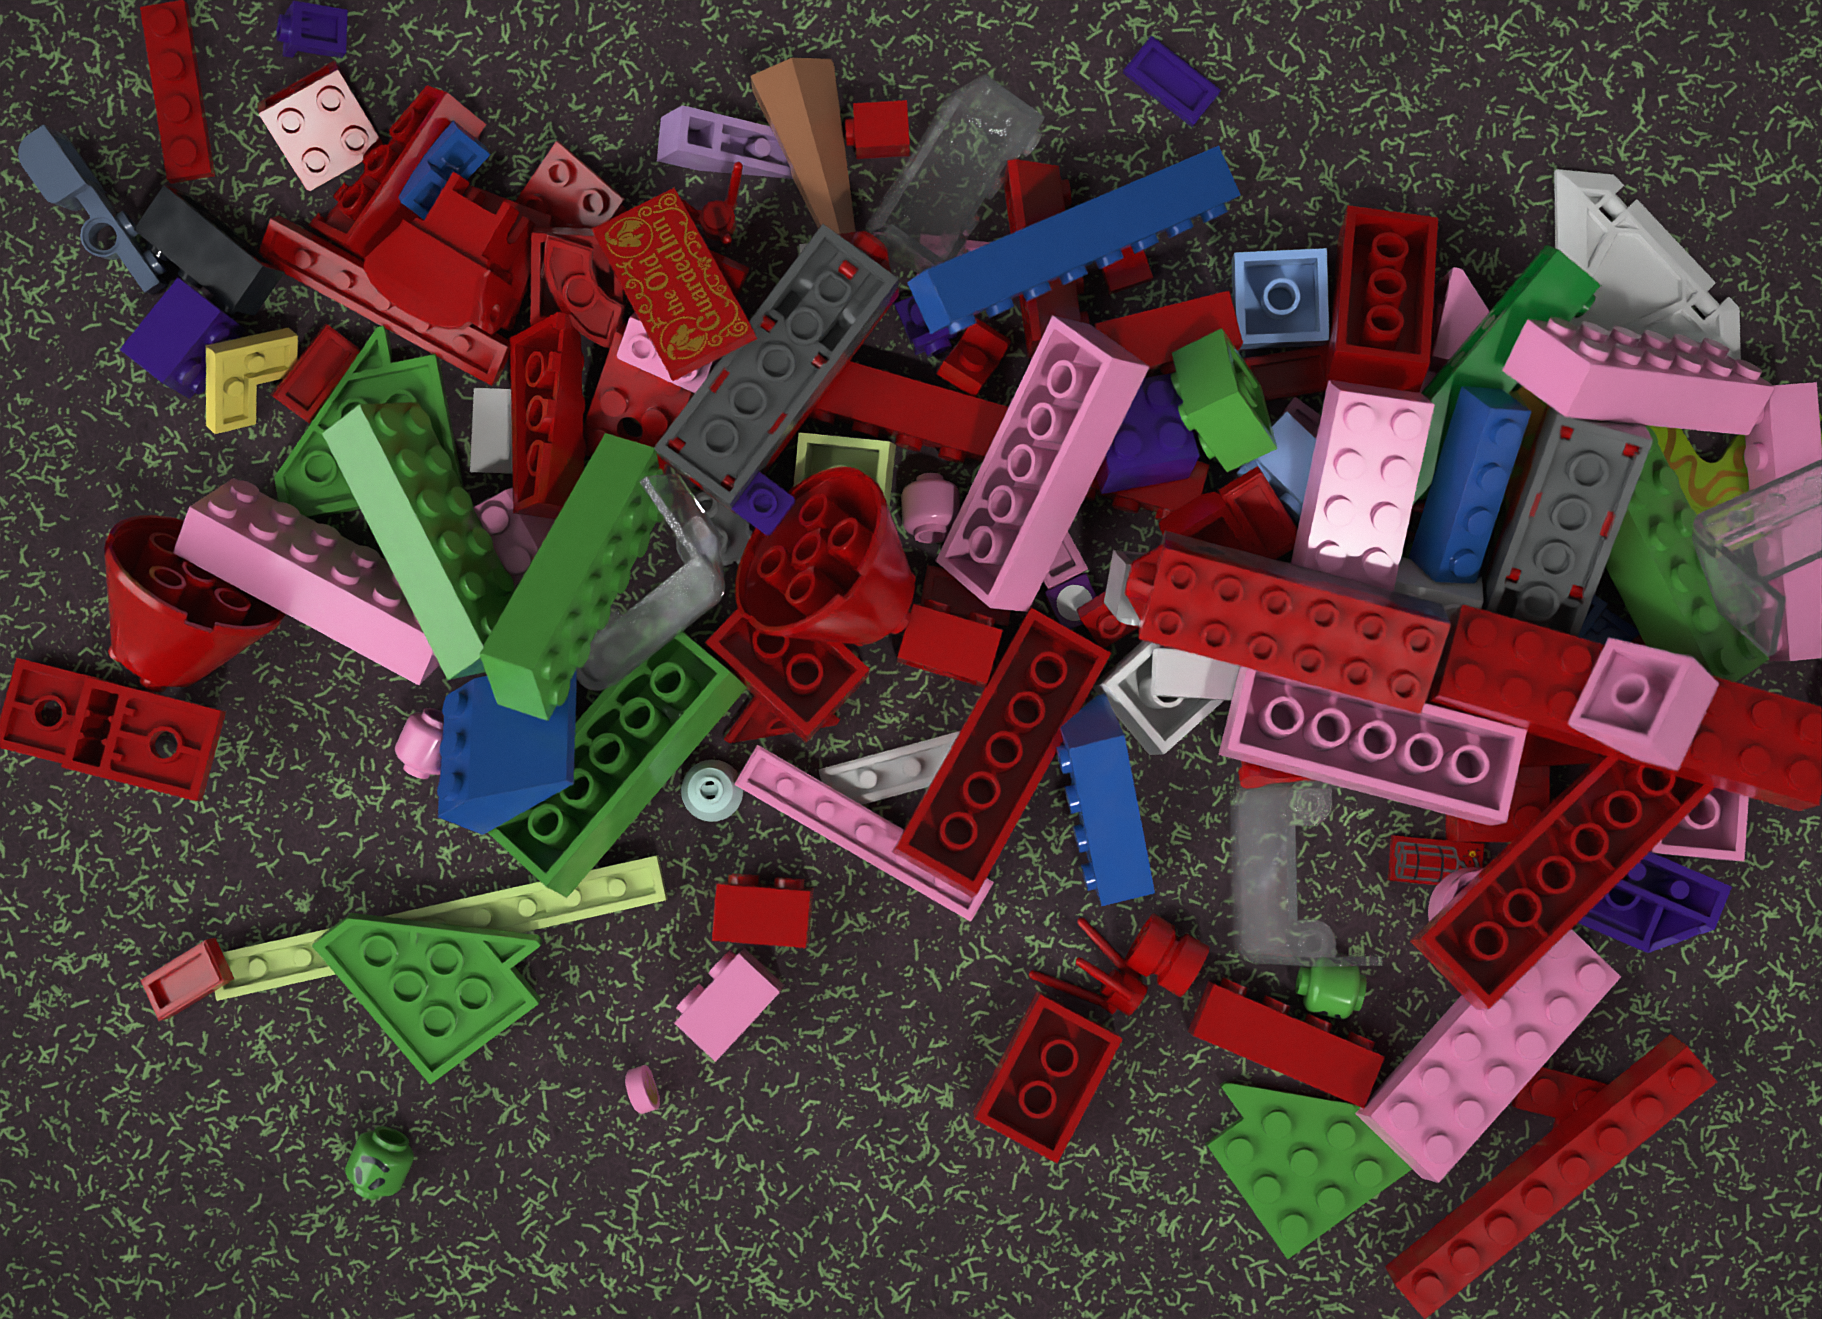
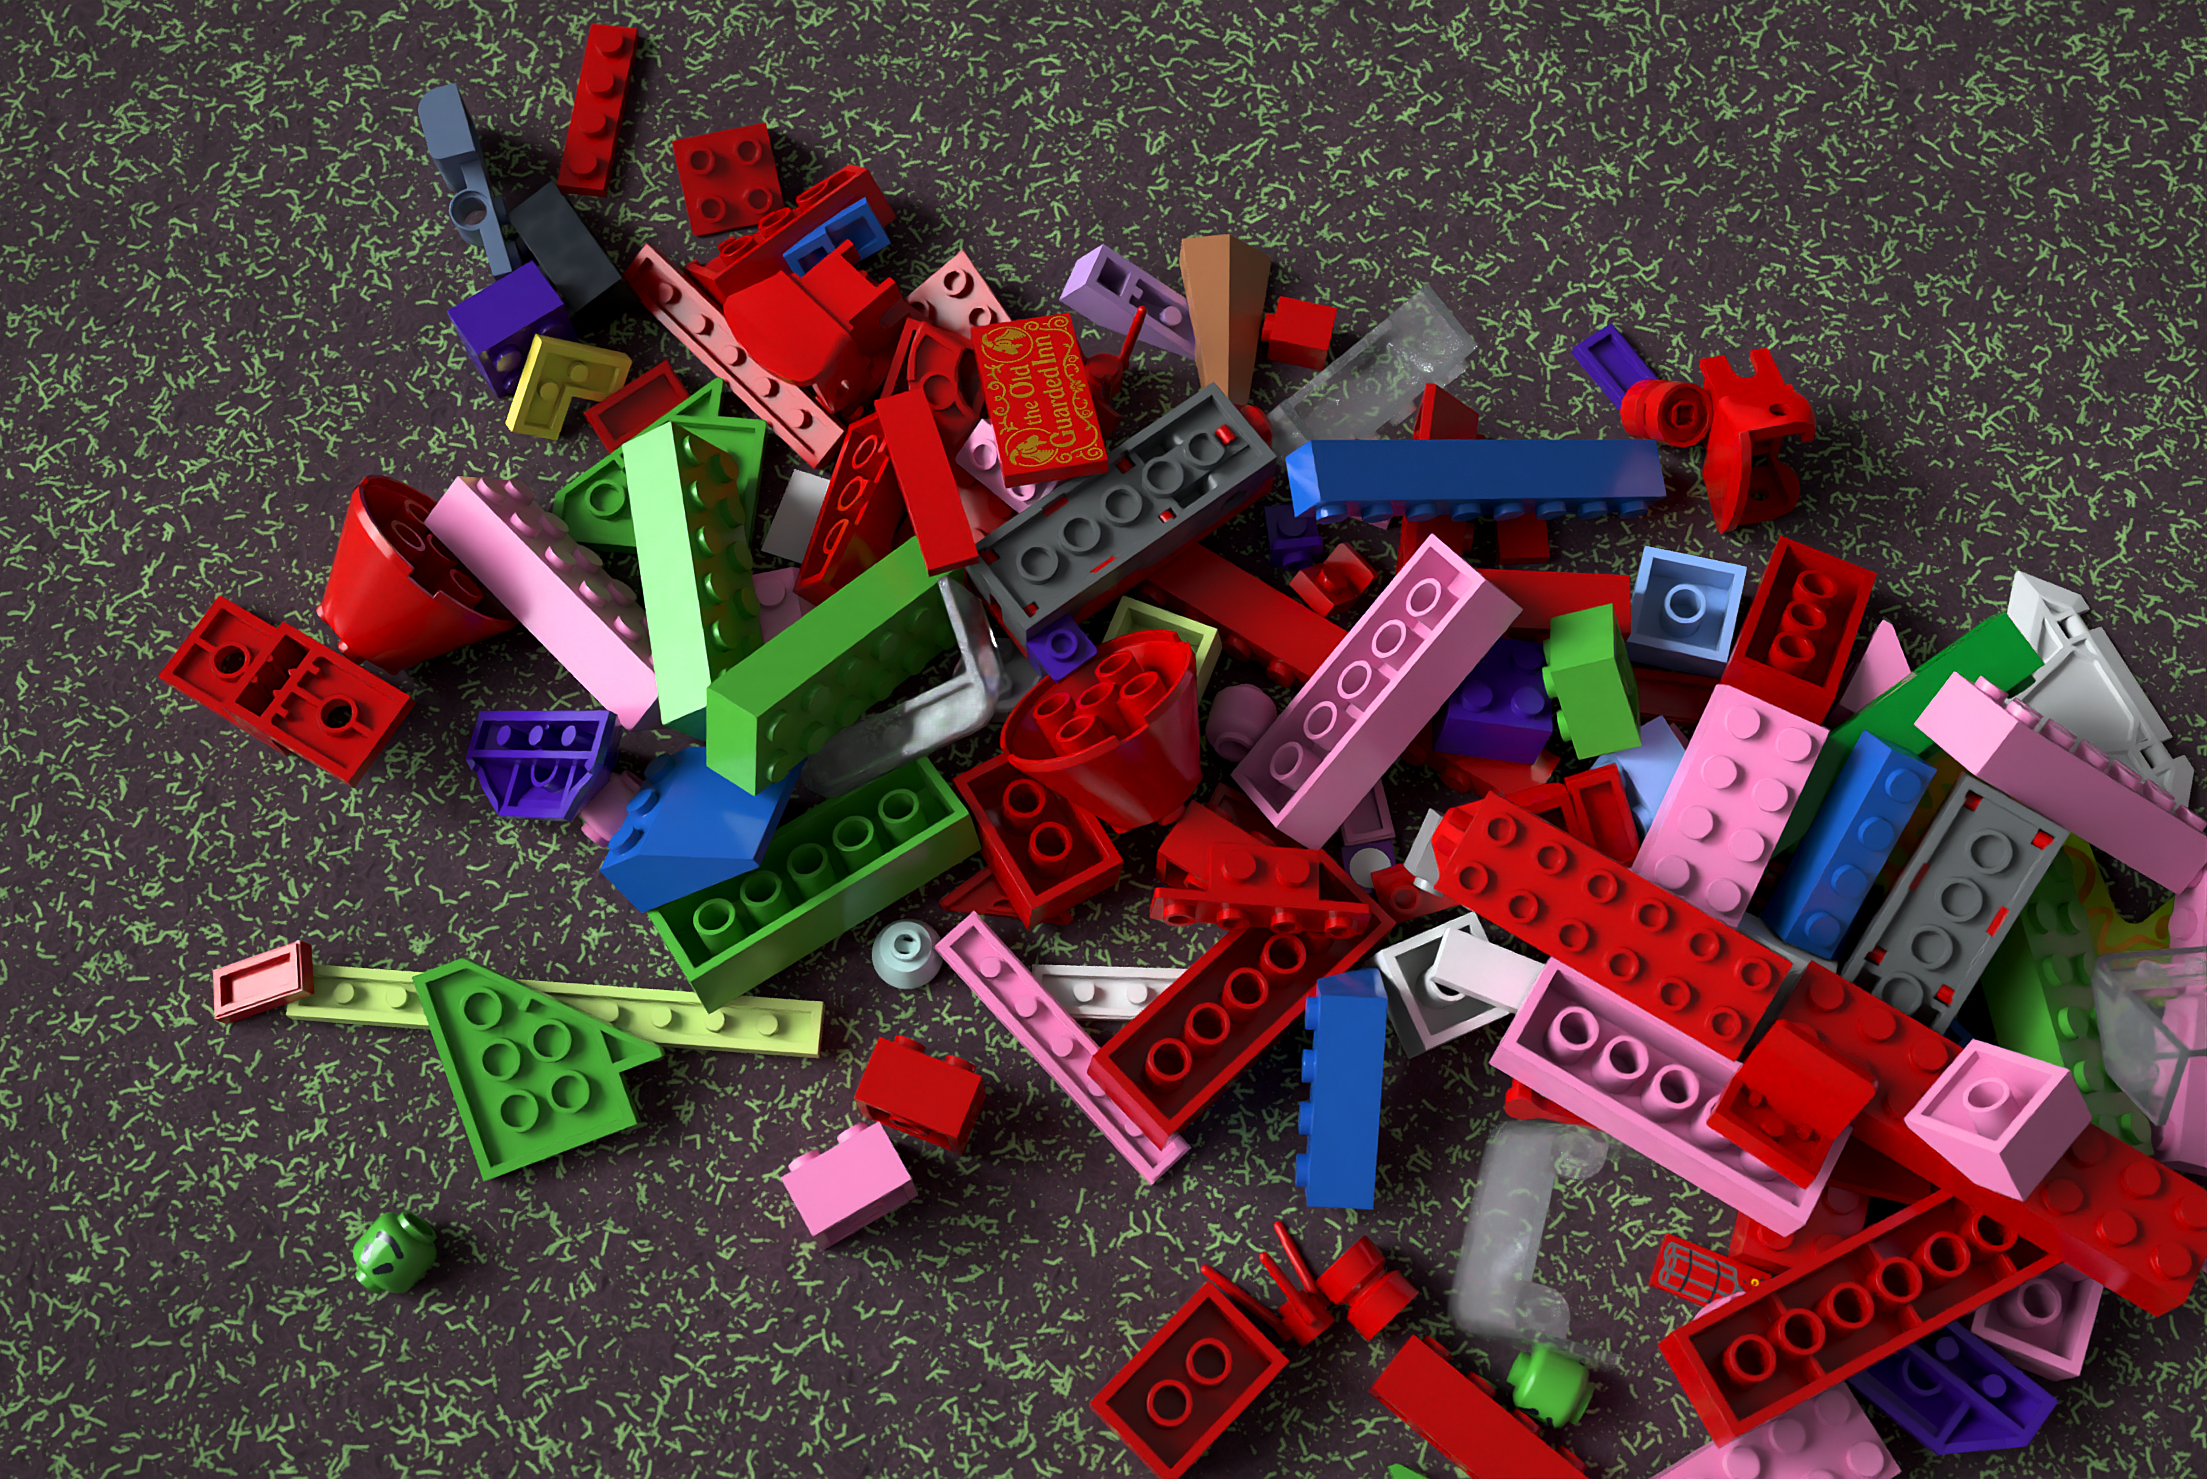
camera: 20 degrees right, 15 degrees down
(313, 30) = (754, 88): dark purple bracket -> none
(351, 728) = (544, 760): none -> dark purple wedge
(599, 391) = (926, 482): none -> red slope
(642, 1089) = (718, 1261): bright pink tile -> none
(994, 664) = (1261, 889): none -> red bracket
(1221, 115) = (1666, 411): none -> red wheel
(1296, 120) = (1748, 422): none -> red piece
(1472, 735) = (1791, 1102): none -> red bracket

